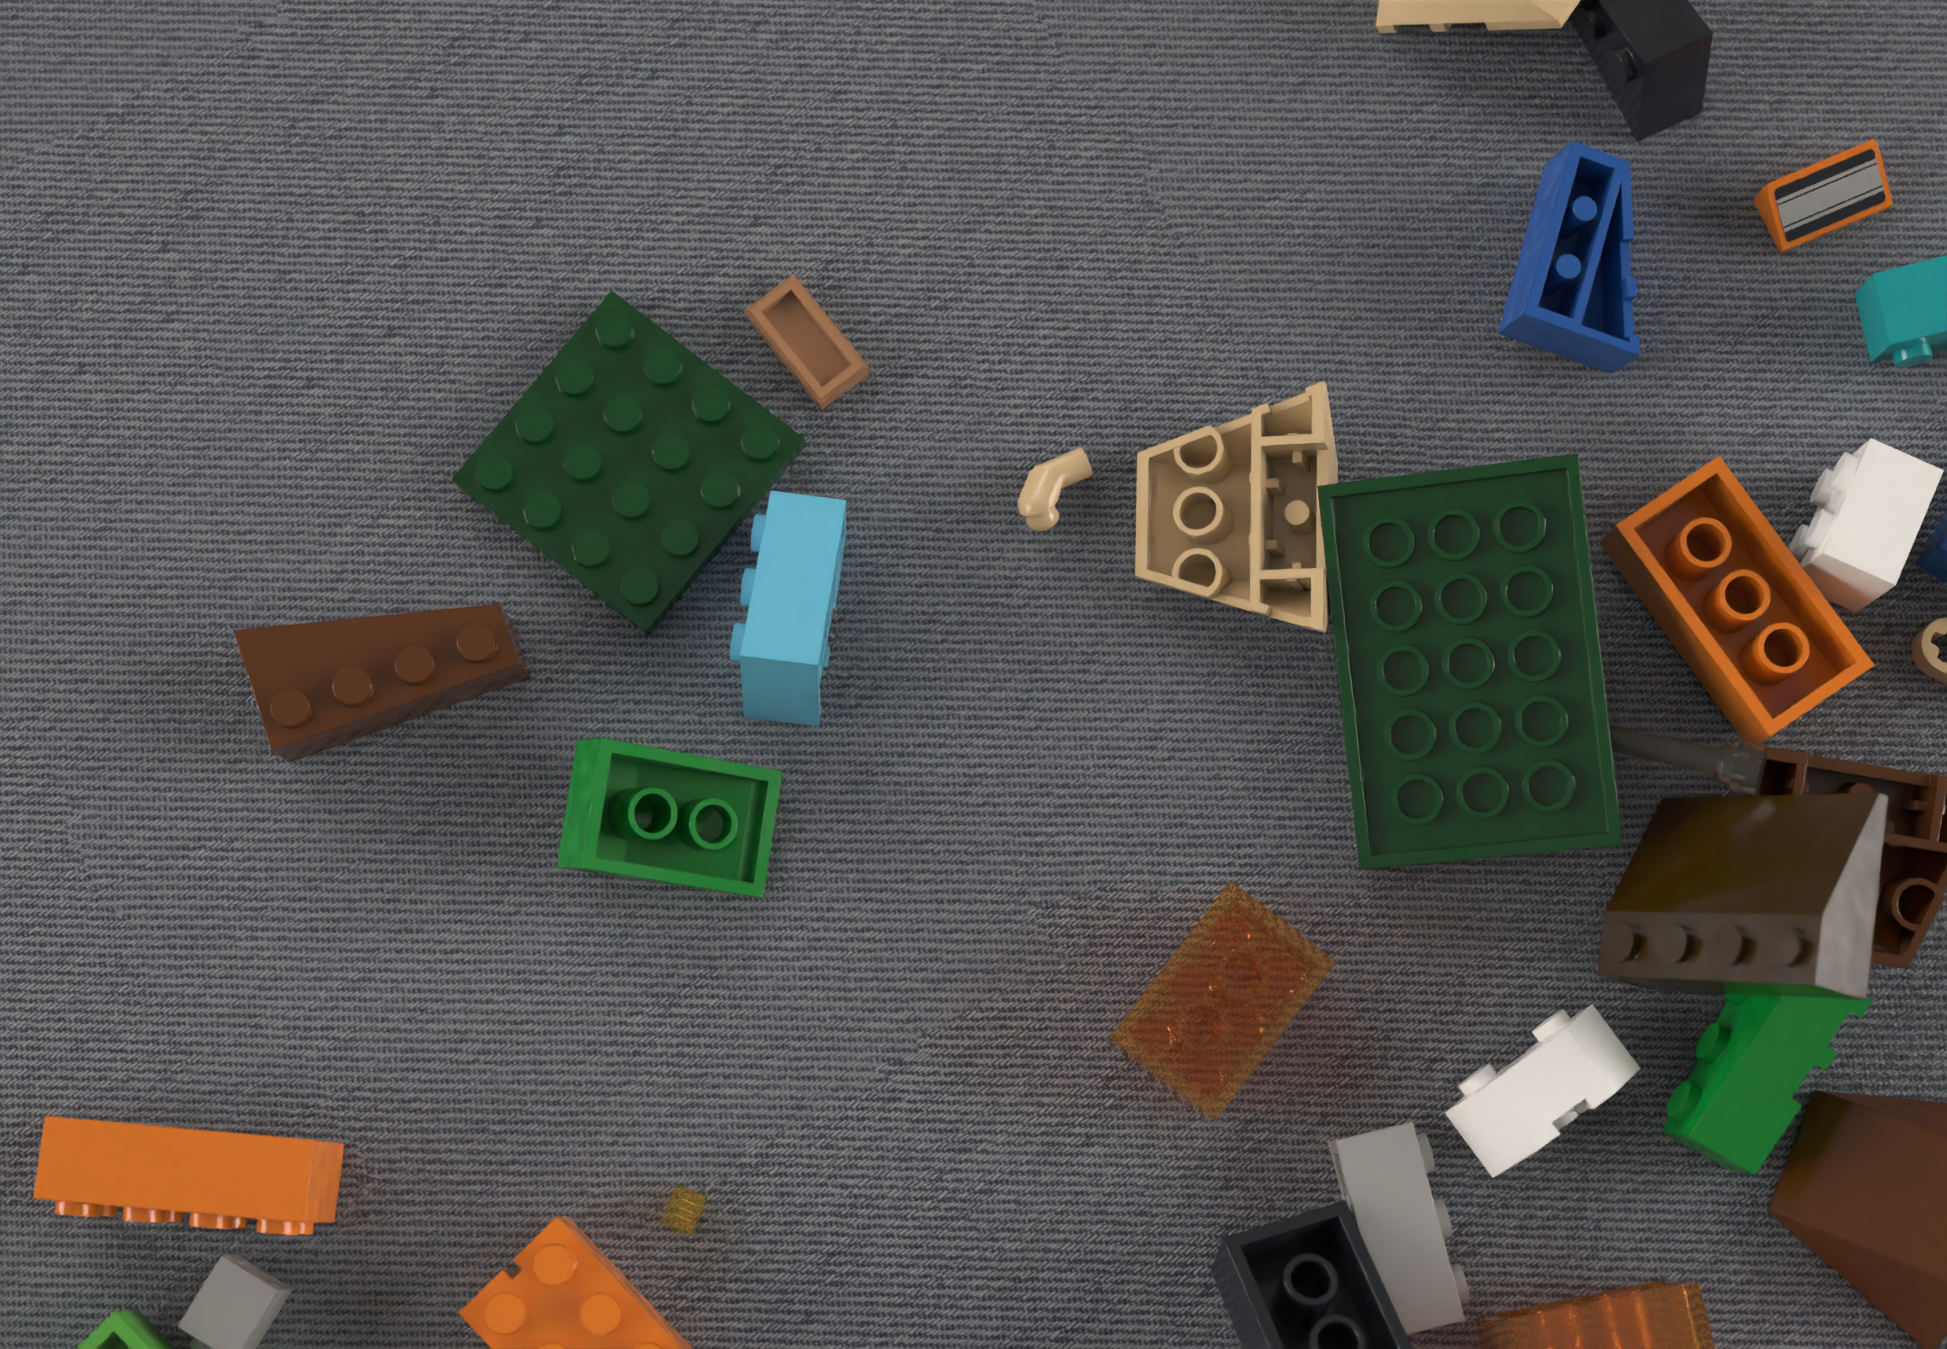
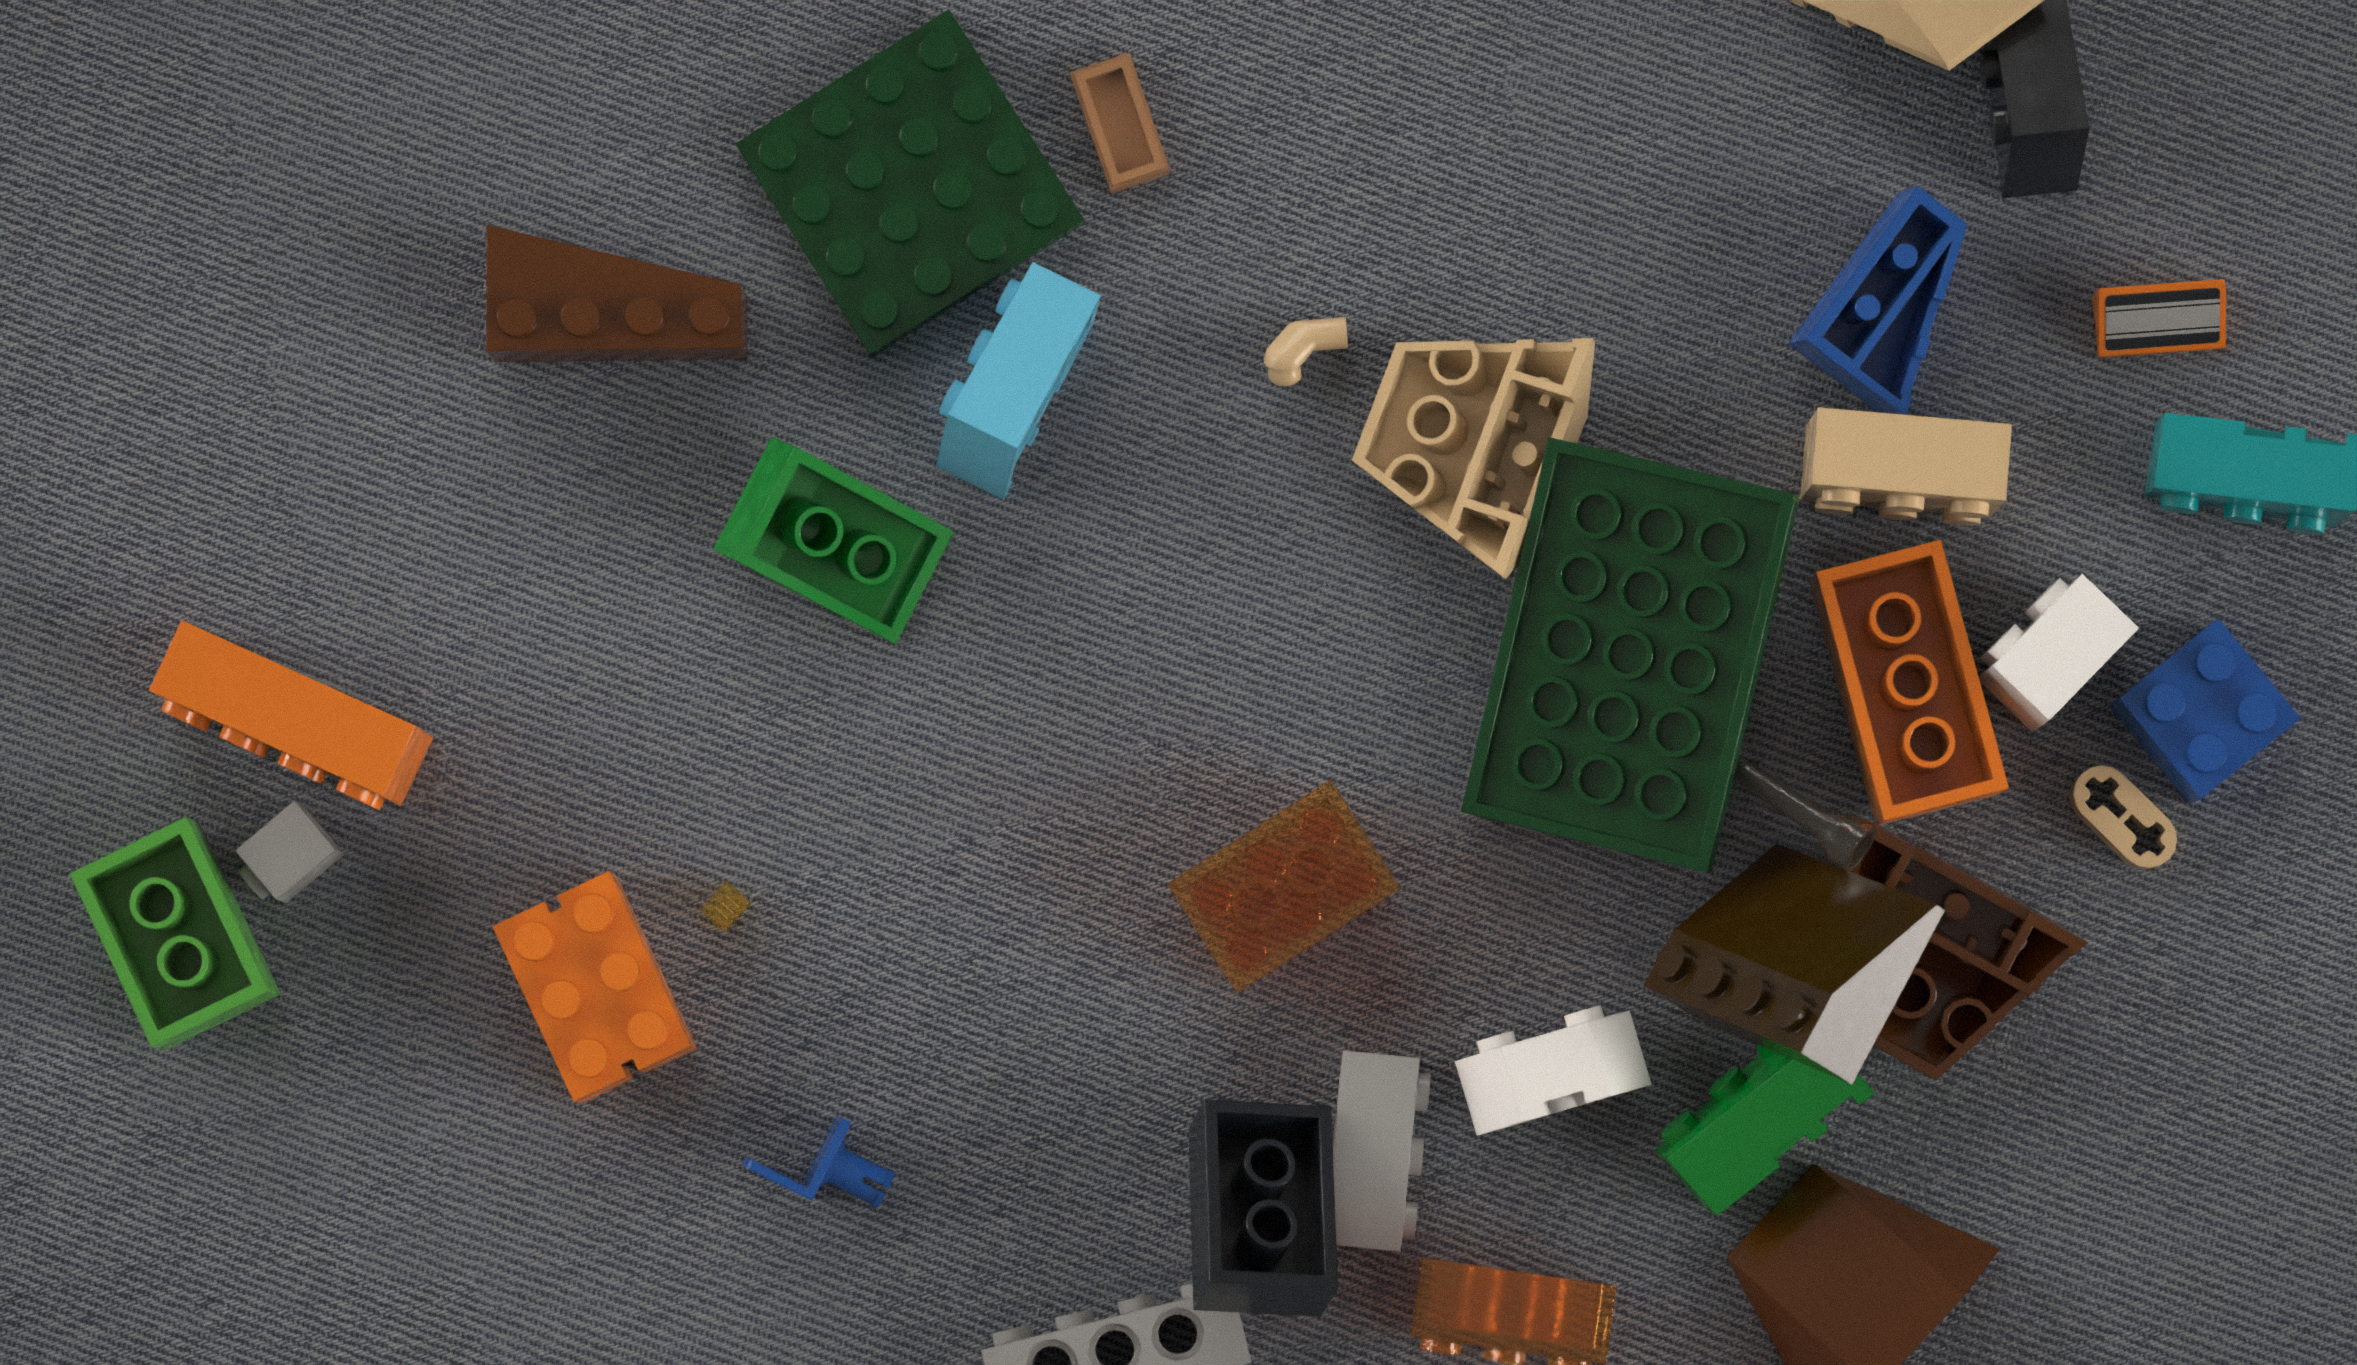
camera: 25 degrees right, 5 degrees up
(1657, 399) = (1905, 465): none -> tan brick

